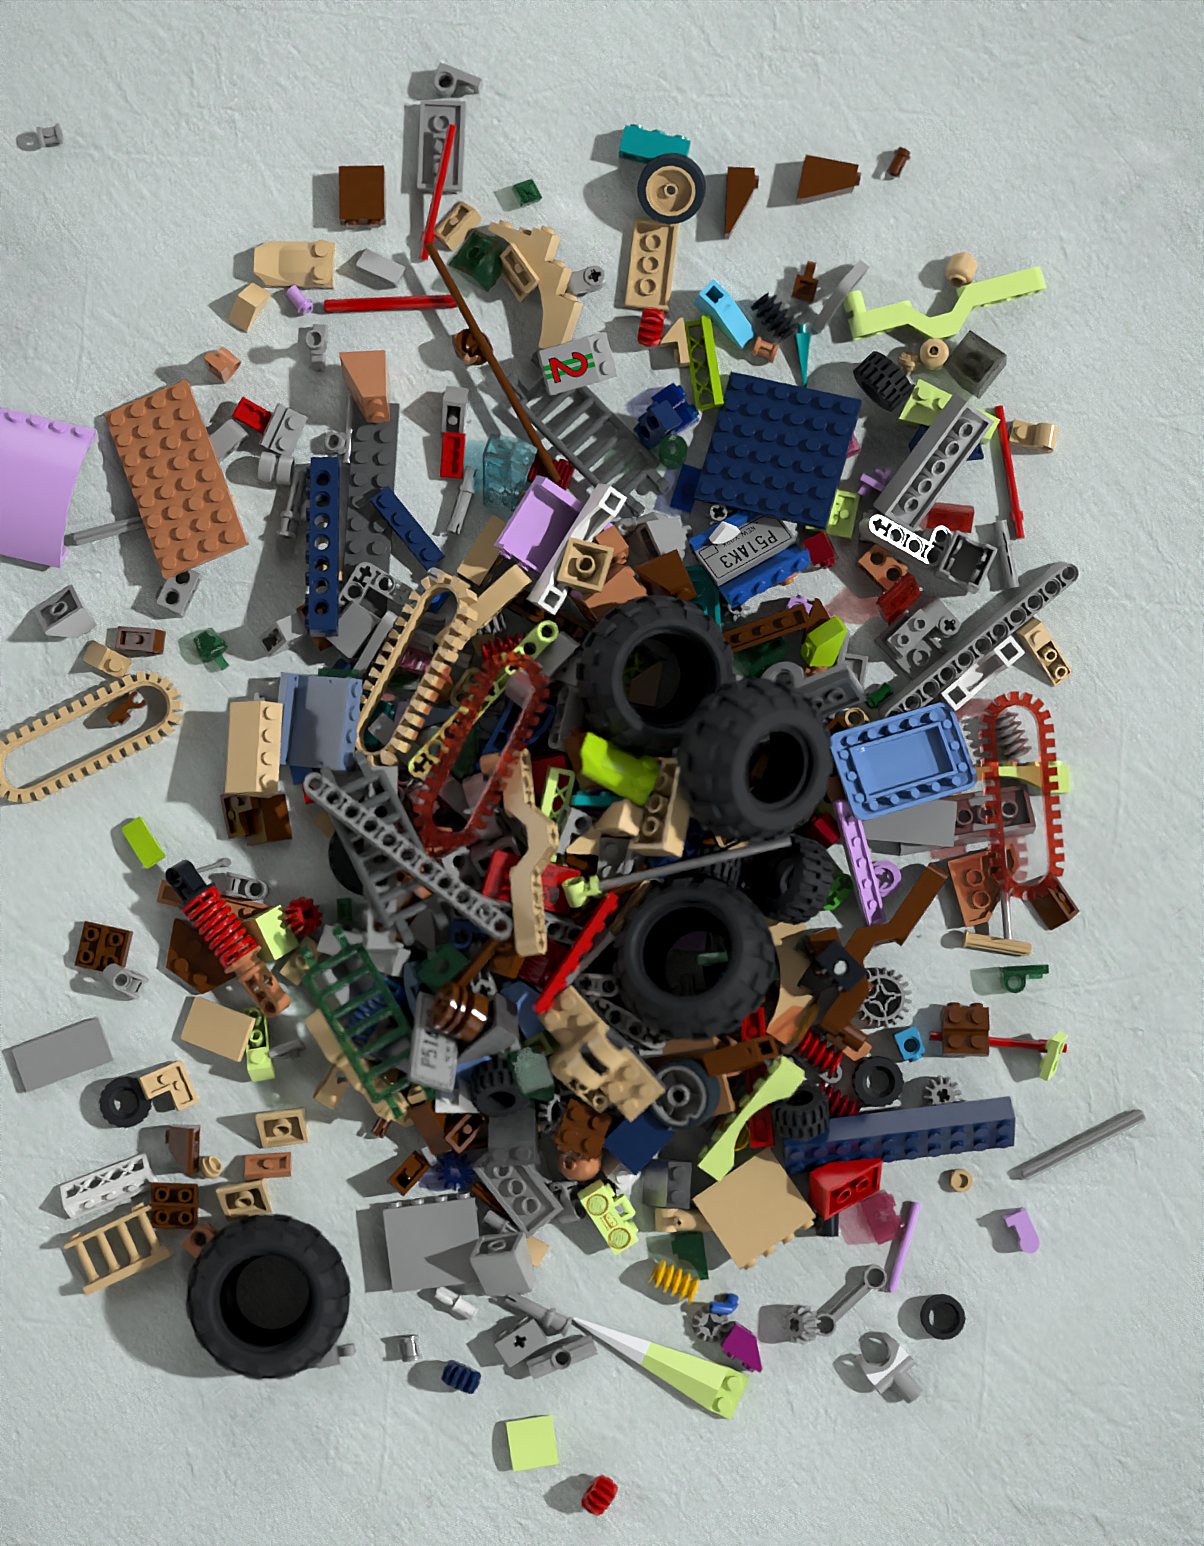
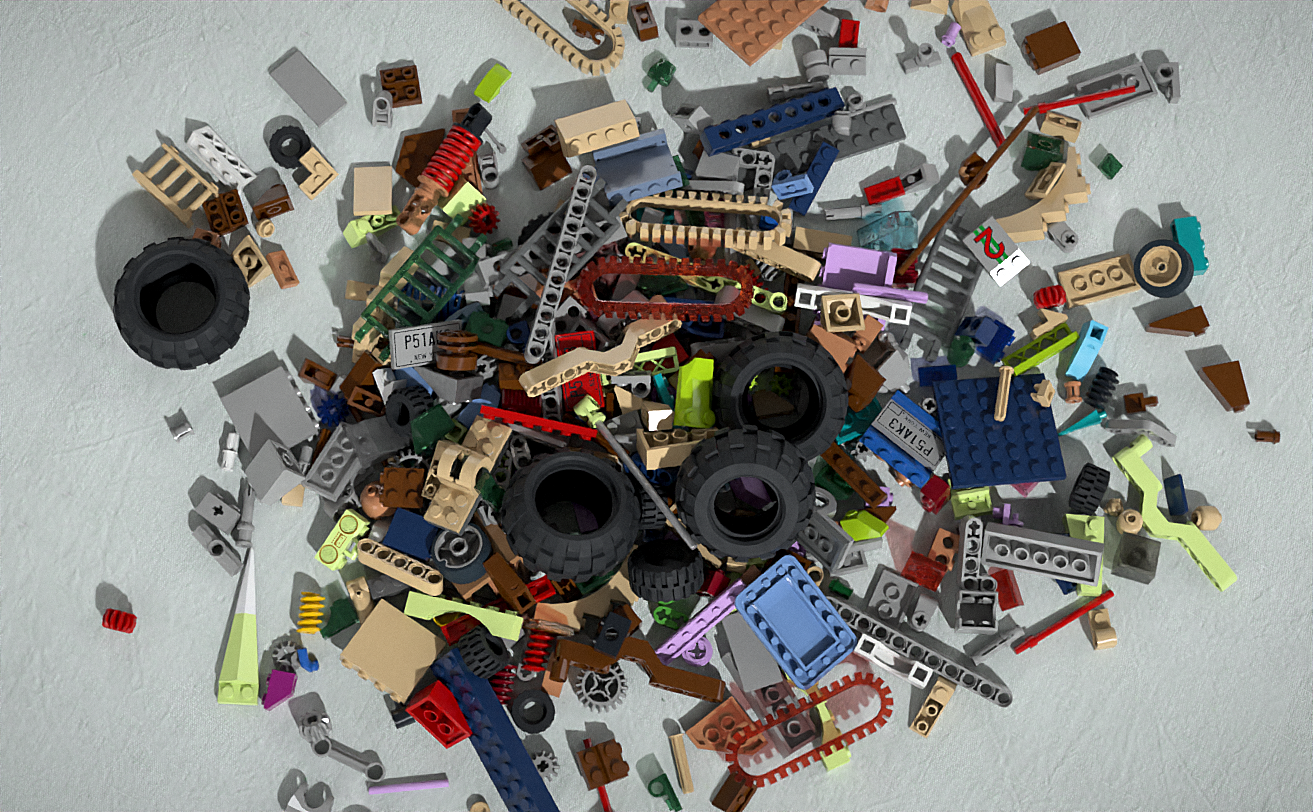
camera: 70 degrees right, 10 degrees down
(282, 1127) = (316, 268): tan slope -> none
(334, 1356) = (155, 375): light grey plate -> none
(356, 469) = (842, 122): none -> light grey piece
(368, 382) = (912, 106): nougat slope -> none
(404, 562) = (790, 186): none -> medium blue plate
(461, 1377) = (173, 477): dark blue gear -> none
(532, 1443) = (141, 554): yellowish green slope -> none
(580, 502) = (891, 293): none -> lavender axle
(632, 1036) = (490, 491): none -> clear green slope
(658, 1167) = (400, 567): none -> tan beam
(724, 533) = (915, 414): white tile -> none
(739, 427) = (1003, 392): none -> tan axle
(759, 381) = (1045, 393): none -> tan tile
(882, 1230) = (415, 759): clear pink brick -> none
(909, 1033) = (576, 715): dark azure brick -> none
(910, 633) = (900, 591): light grey brick -> none
(922, 290) = (1175, 495): none -> dark blue slope
(1006, 912) = (717, 755): light grey bar -> none
(1011, 735) = (854, 705): light grey piece -> none

